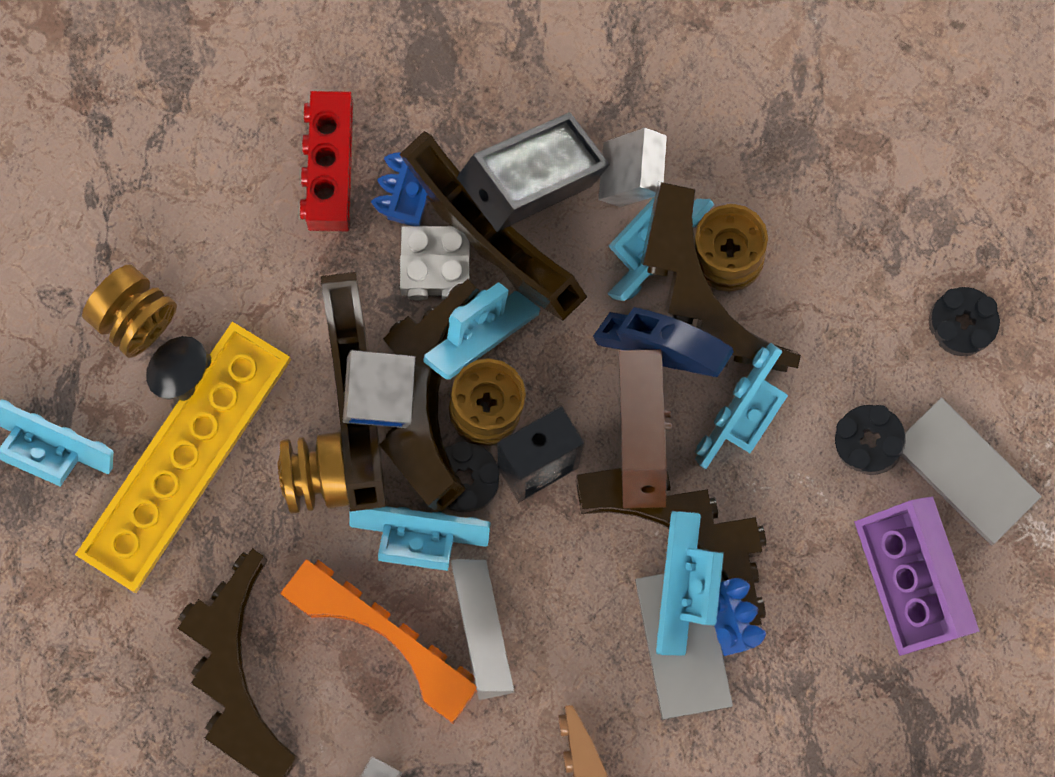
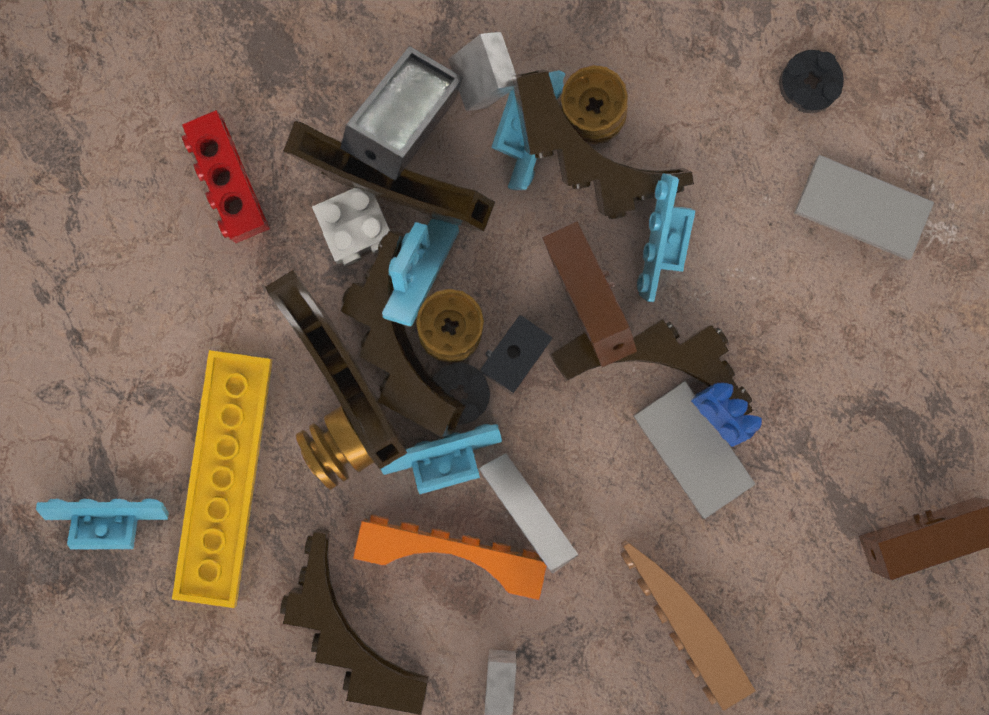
camera: 20 degrees left, 10 degrees up
(129, 310) = (118, 381): pearl gold wheel -> none
(177, 368) = (182, 409): black dish -> none
(379, 389) = (357, 359): flat silver piece -> none
(408, 197) = (306, 181): blue plate -> none
(681, 344) = (589, 207): dark blue slope -> none
(689, 584) = (682, 404): medium azure bracket -> none
(888, 447) = (776, 198): black plate -> none
(916, 575) = (860, 313): medium lavender slope -> none

